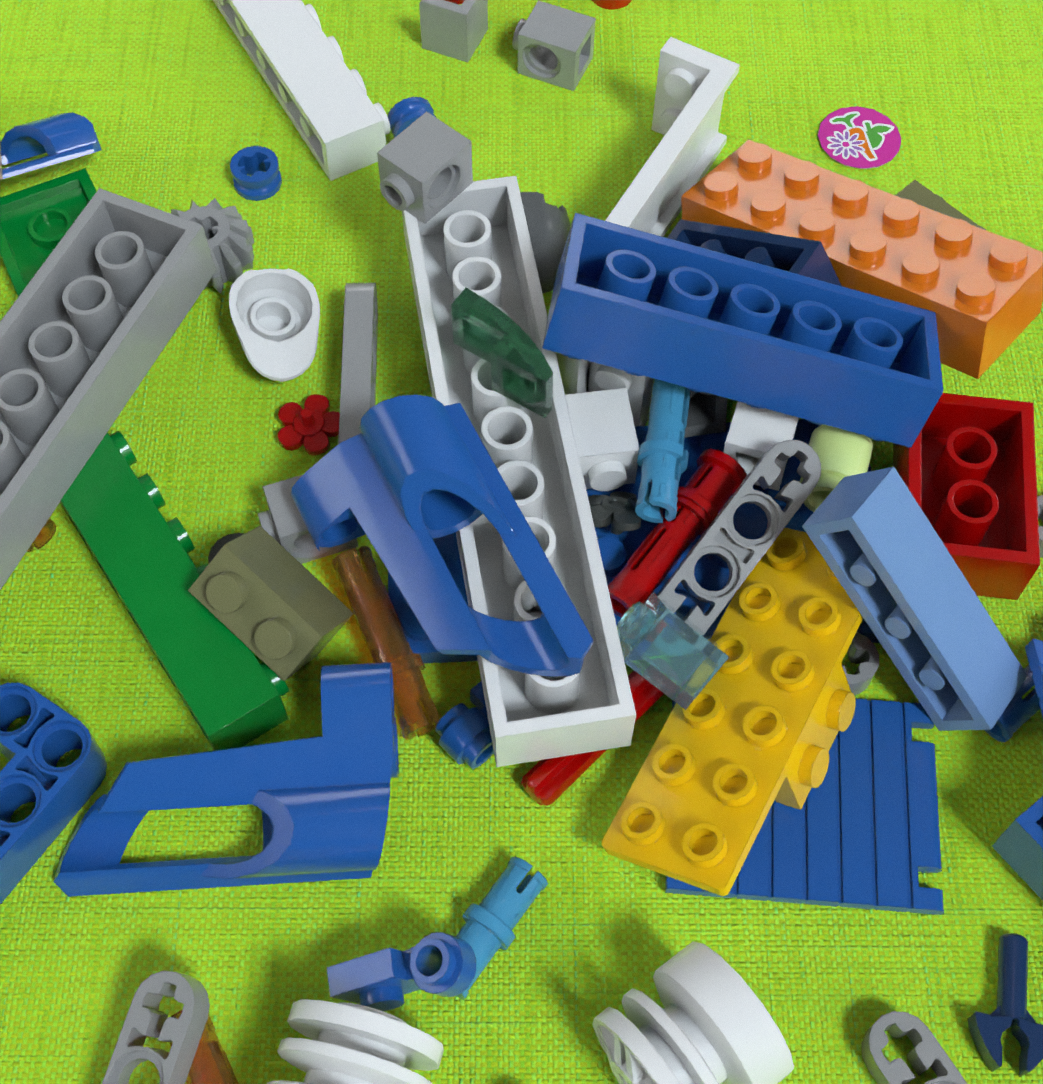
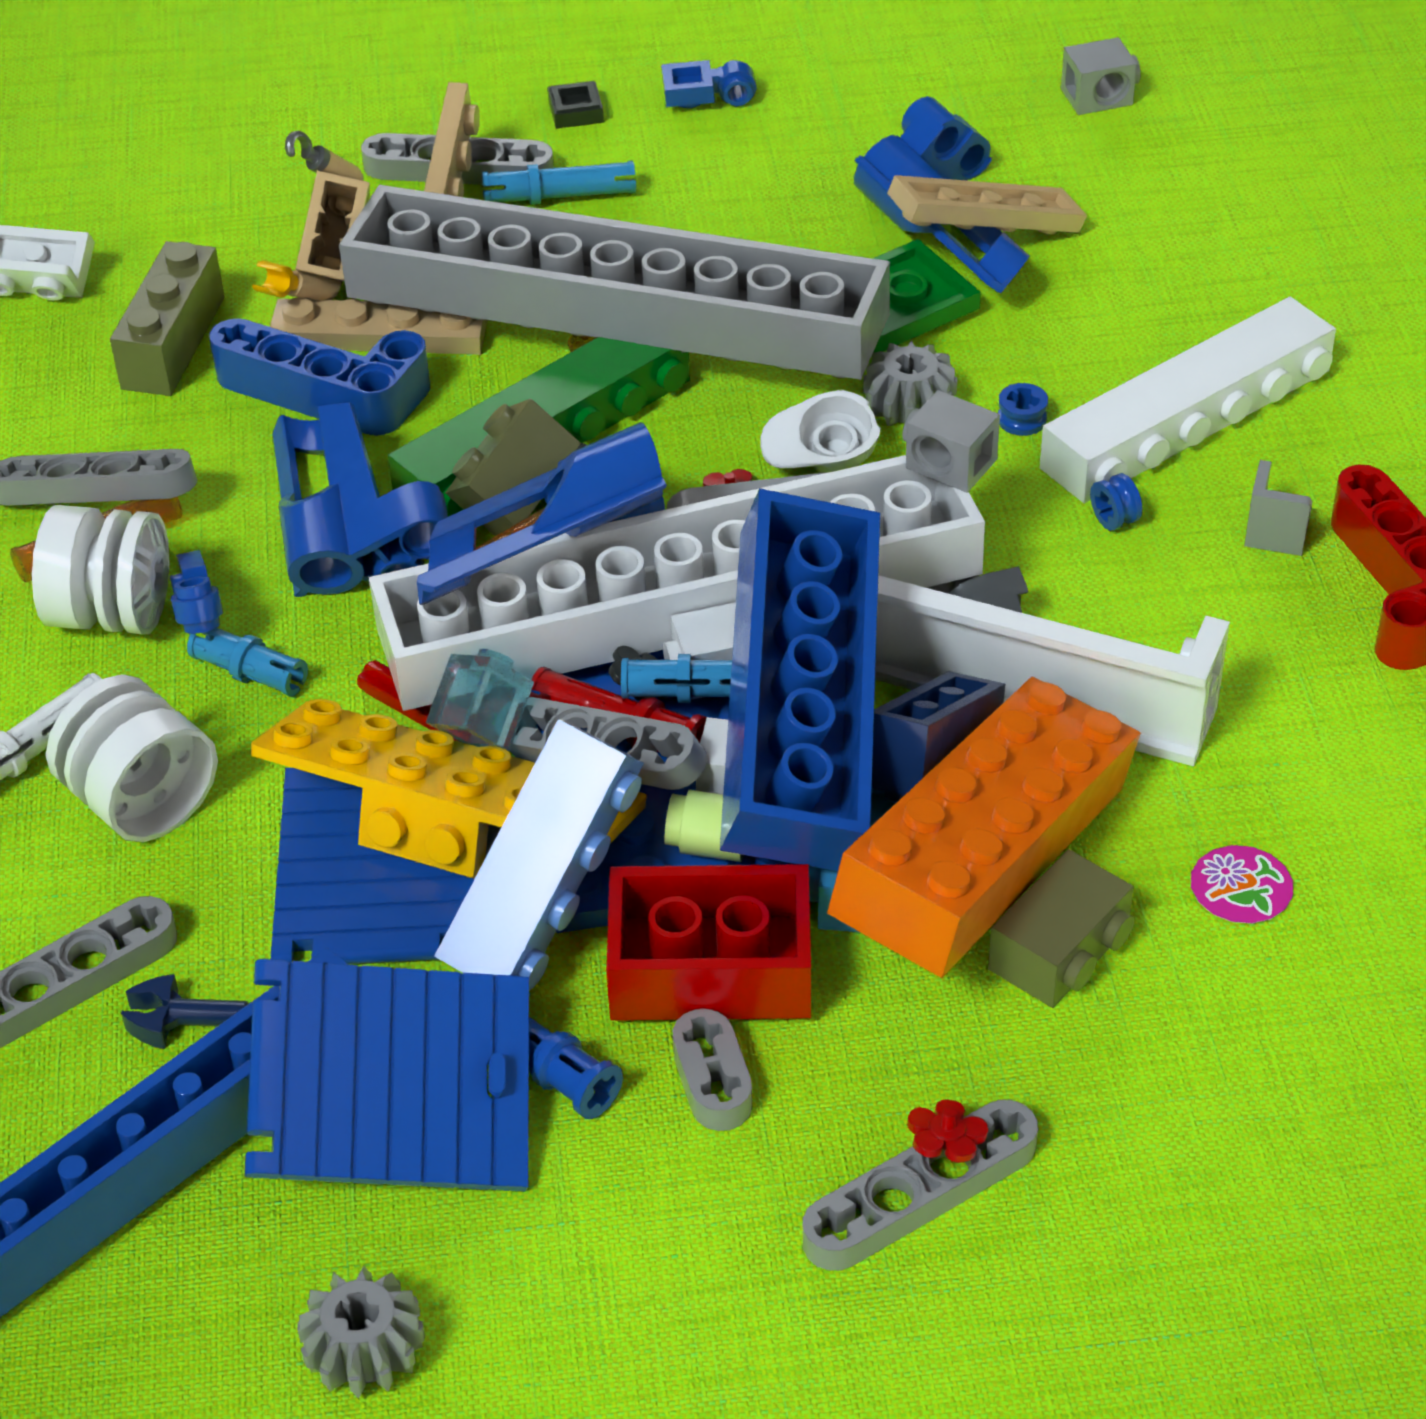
camera: 85 degrees right, 15 degrees down
(516, 362) = (718, 526): clear green slope -> none
(554, 45) = (1269, 594): light grey brick -> none

